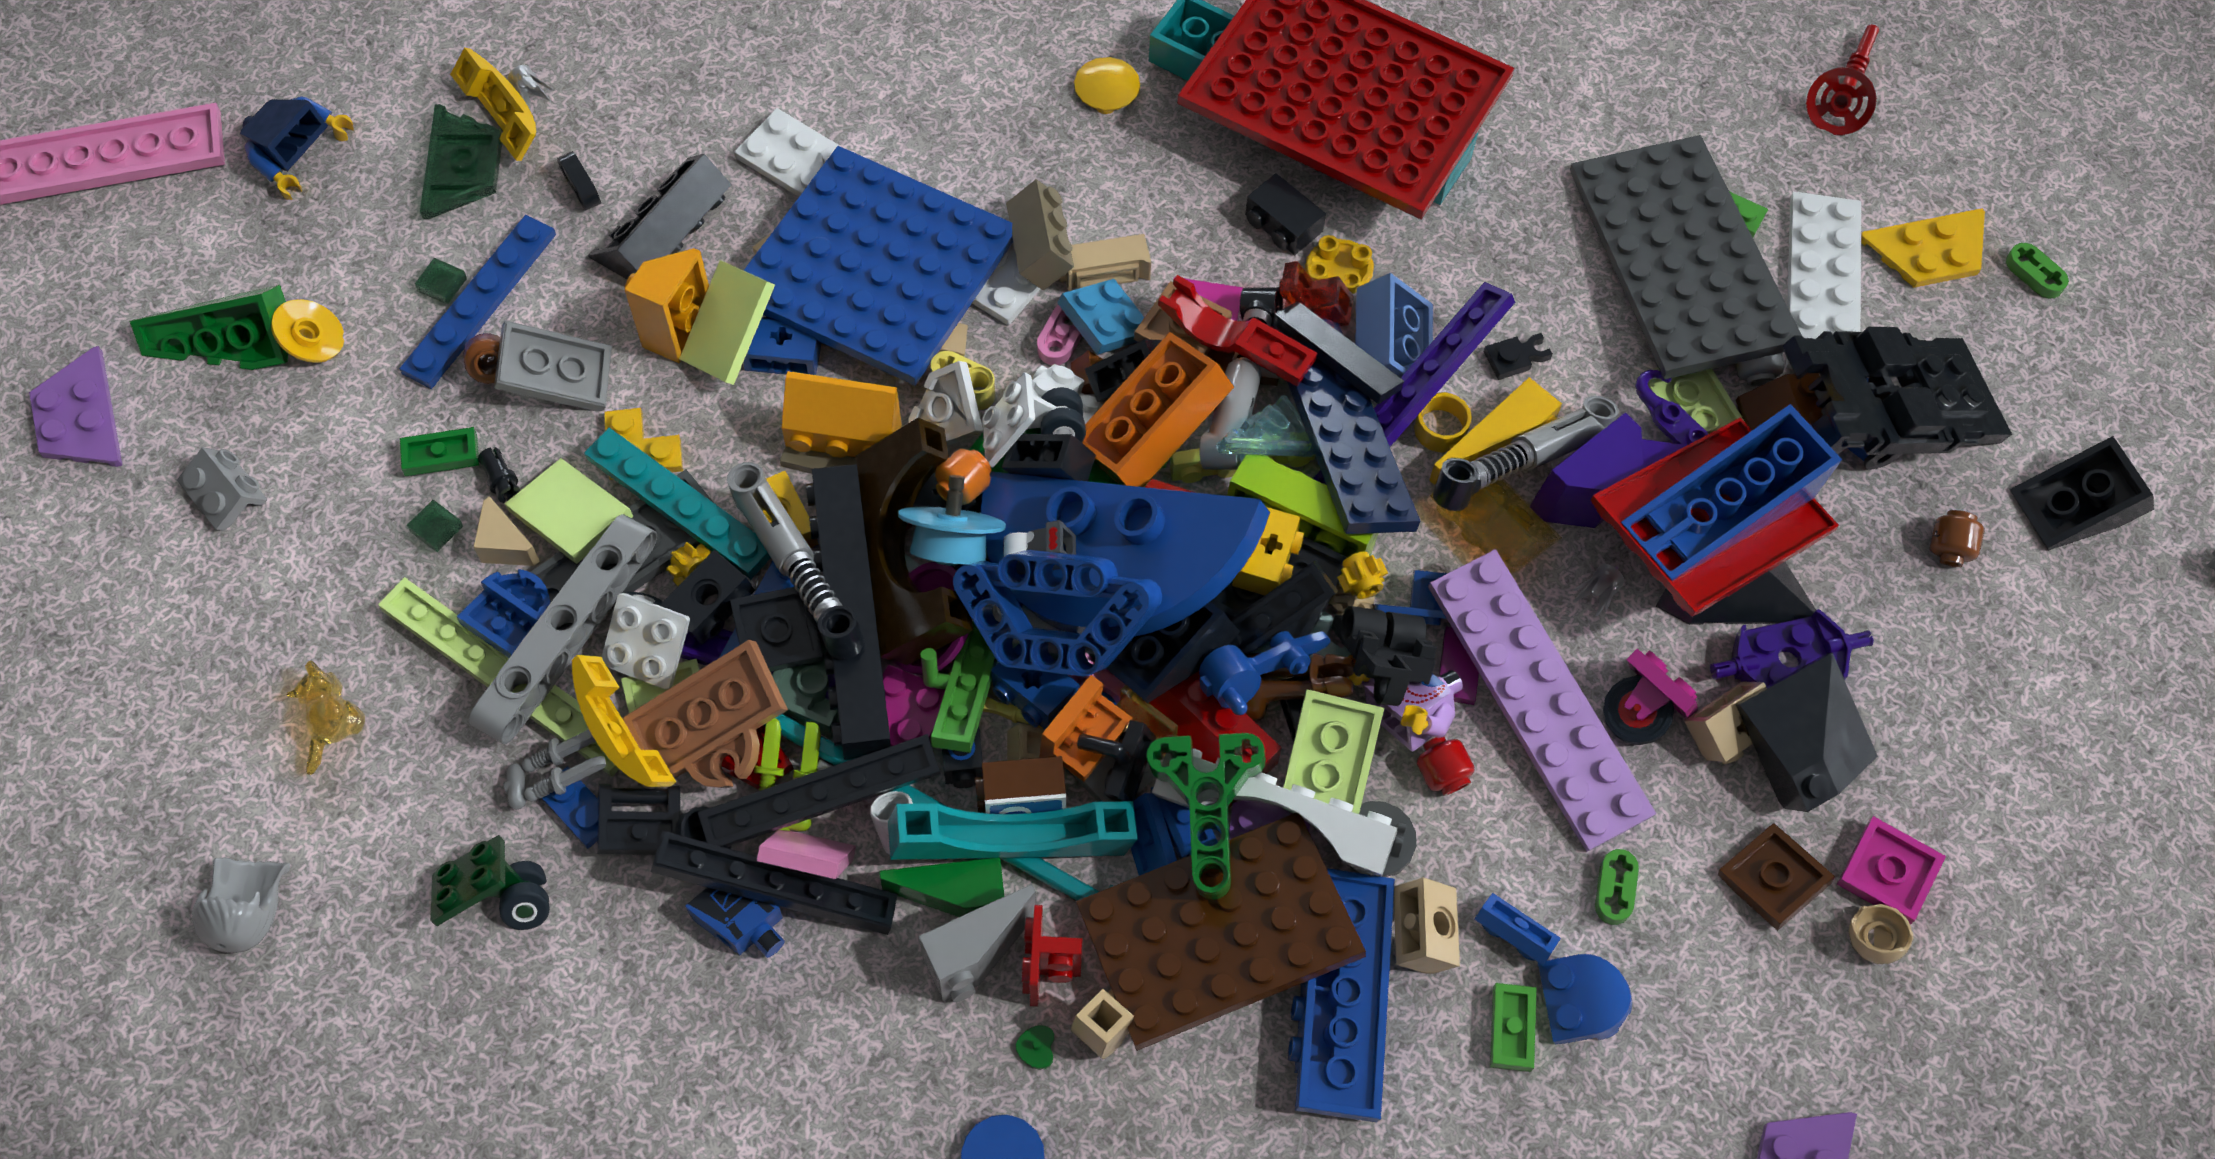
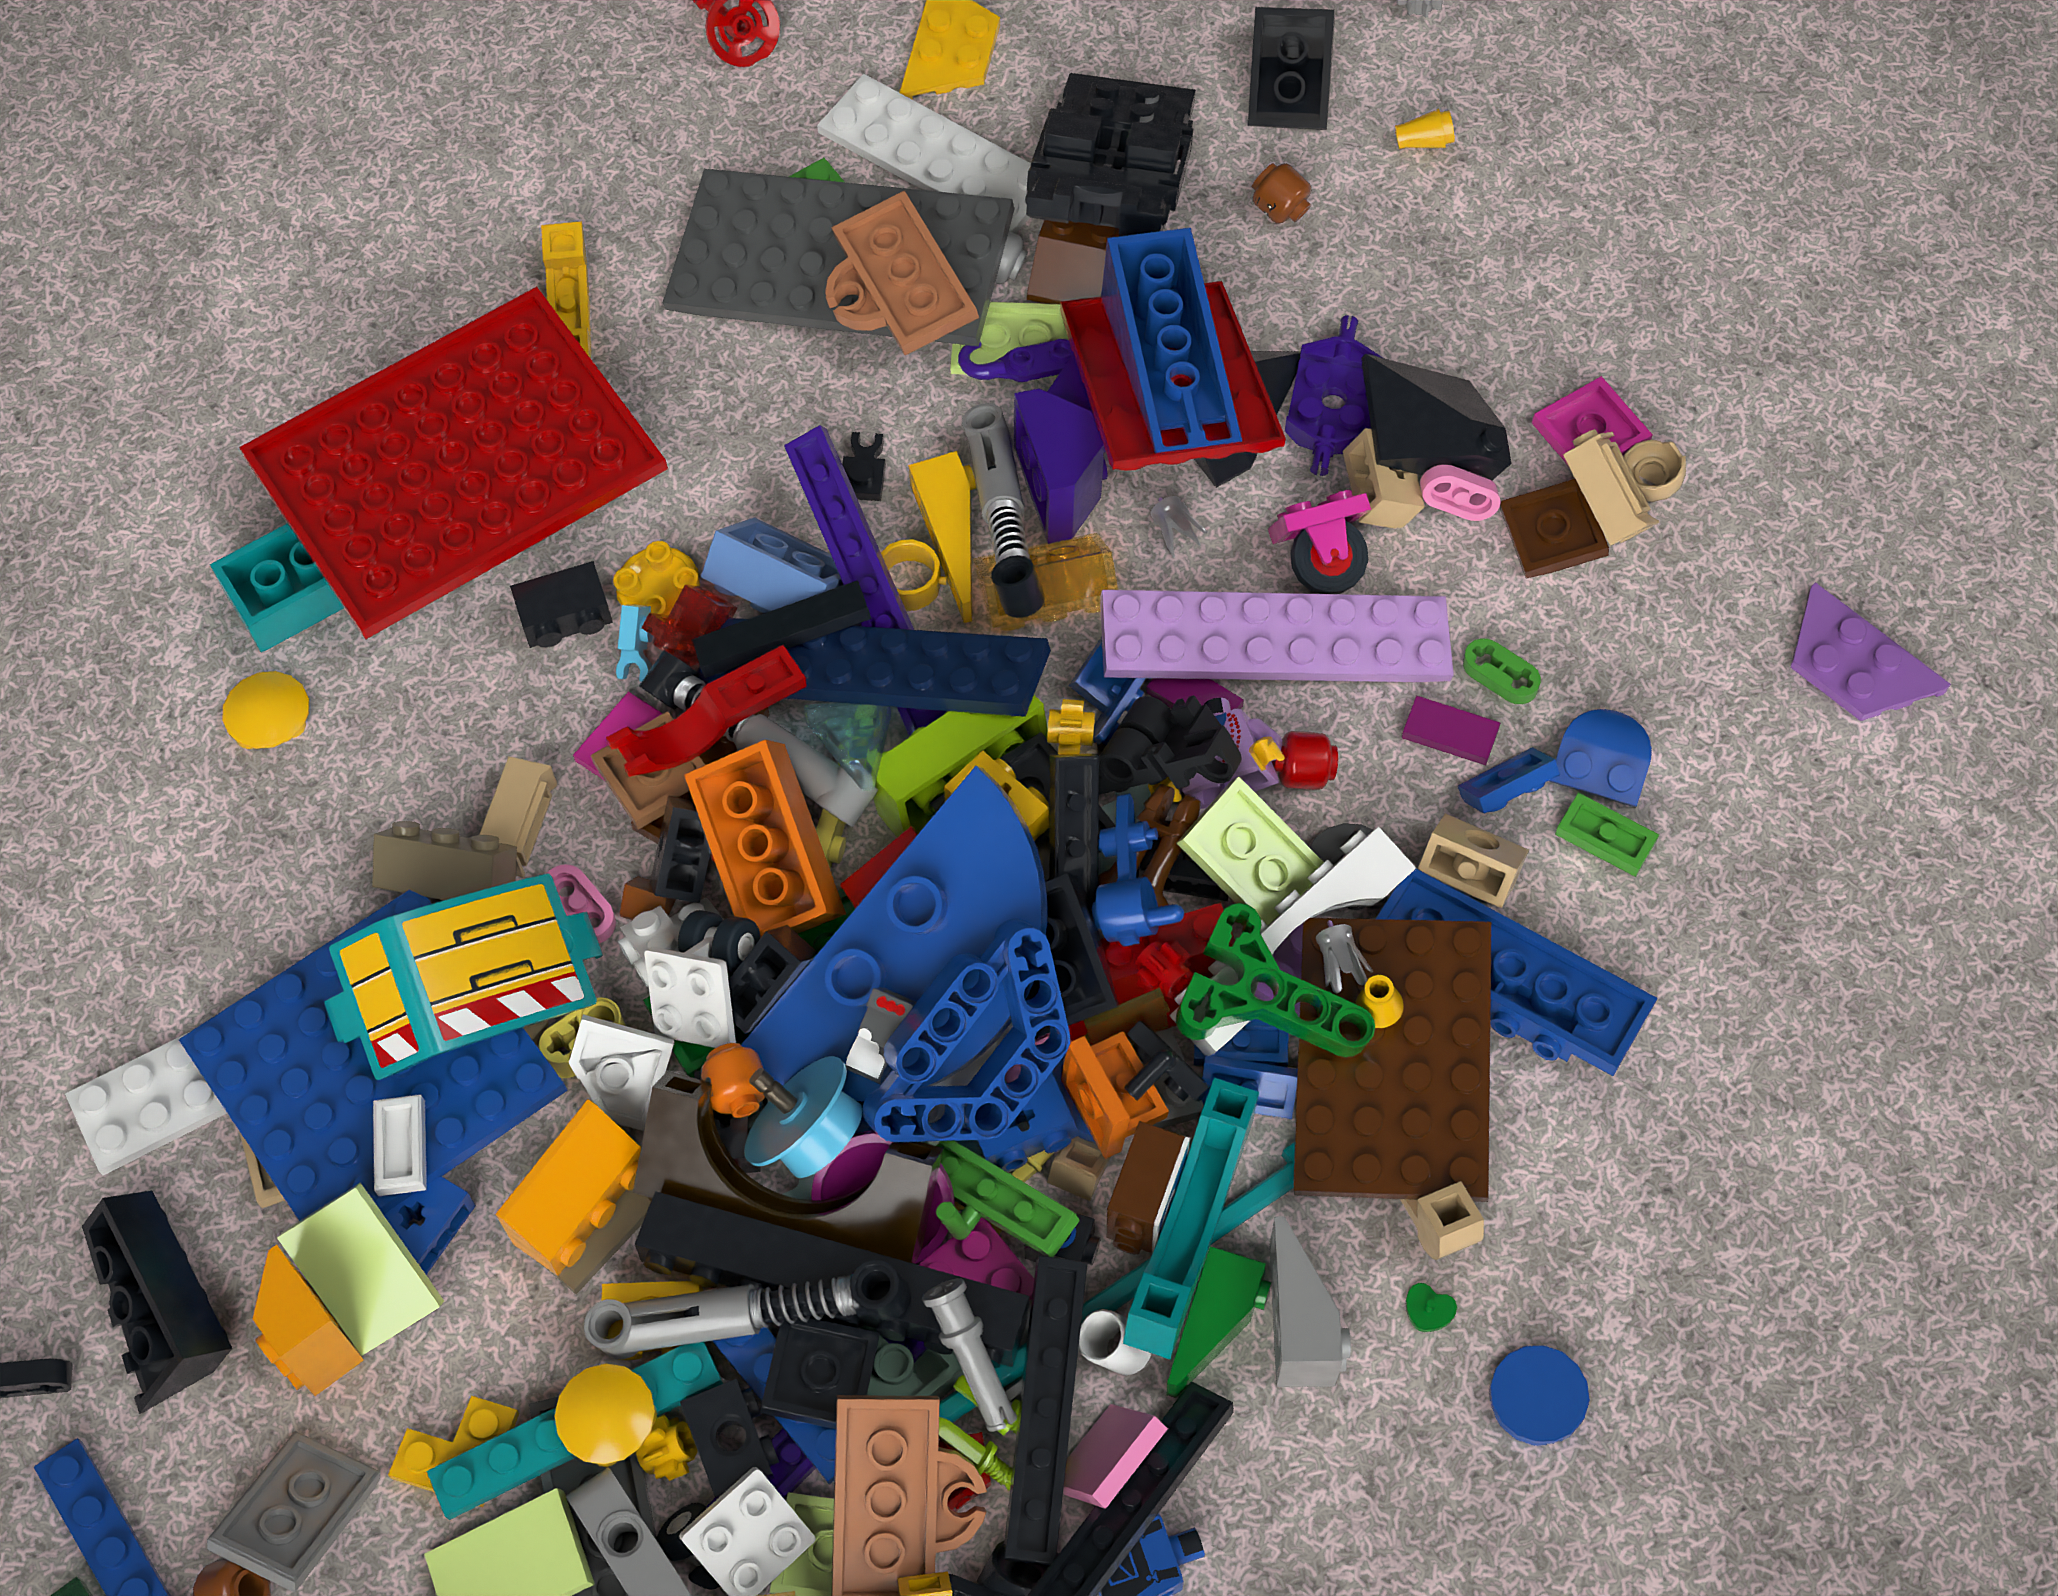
camera: 60 degrees left, 0 degrees up
(687, 509) = (605, 1414): none -> yellow dish
(818, 299) = (399, 1145): none -> white tile
(835, 700) = (962, 1334): none -> light grey pin
(958, 276) = (461, 973): none -> panel
(1050, 956) = (1349, 1250): red bracket -> none
(1102, 315) = (587, 847): dark azure plate -> none
(1199, 723) = (1164, 968): none -> red gear
(1247, 890) = (1385, 1009): none -> yellow cone
(1274, 272) = (633, 640): none -> medium azure plate
(1280, 837) = (1340, 950): none -> flat silver piece
(1540, 103) = (568, 277): none -> yellow slope
(1540, 869) = (1451, 730): none -> magenta tile
(1679, 291) = (898, 277): none -> nougat plate
(1757, 785) = (1456, 490): none -> bright pink plate
(1833, 899) = (1609, 487): none -> tan window
(2098, 625) = (1426, 131): none -> yellow cone

